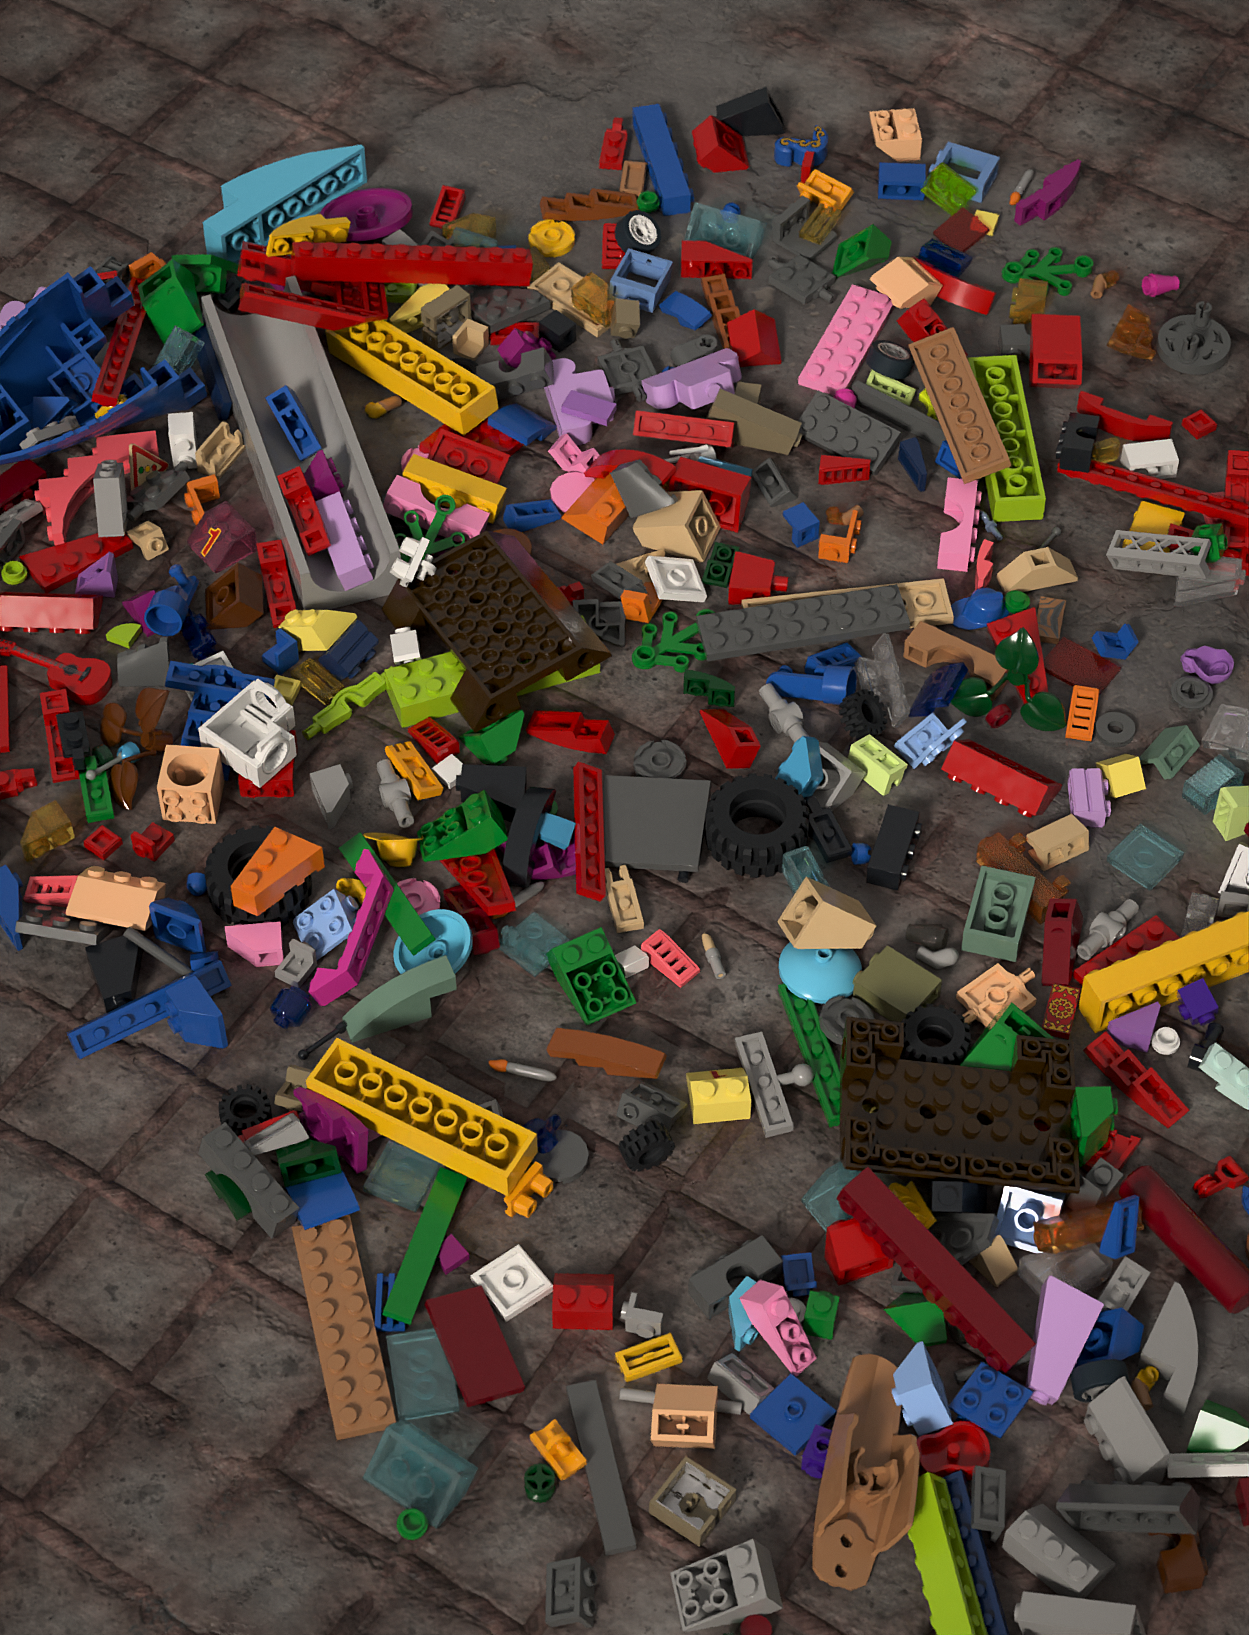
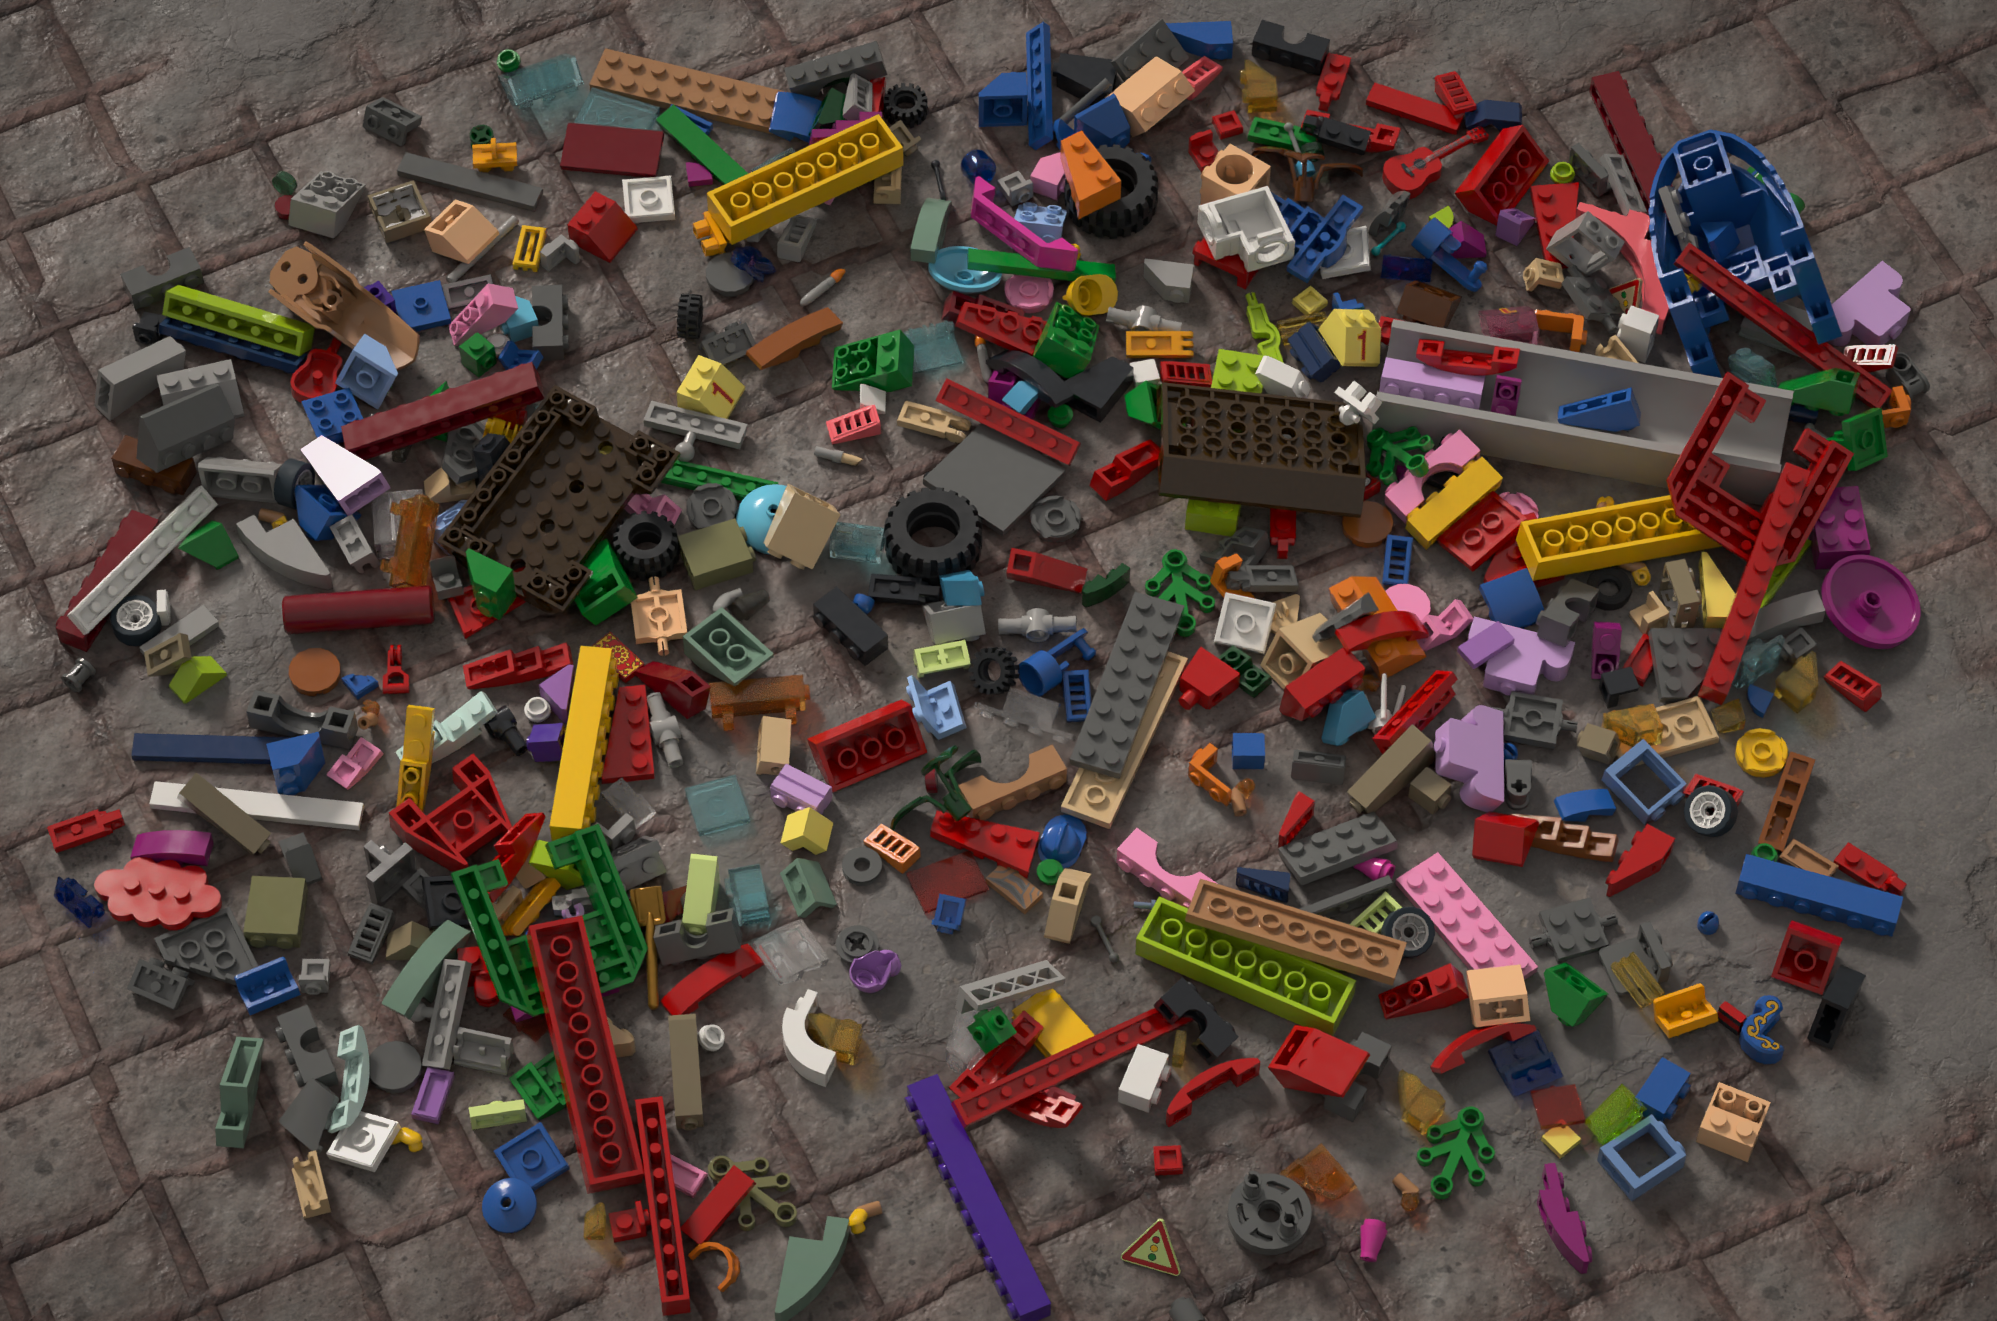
camera: 120 degrees right, 5 degrees up
(281, 193) = (1928, 529): medium azure slope -> none
(309, 228) = (1834, 496): yellow slope -> none
(725, 230) = (1675, 893): clear light blue slope -> none
(938, 689) = (982, 740): clear blue slope -> none
(984, 566) = (1100, 860): coral slope -> none
(988, 1500) = (262, 368): dark grey panel -> none
(1022, 185) = (1583, 1191): light grey piece -> none
(1121, 1229) = (384, 546): blue slope -> none

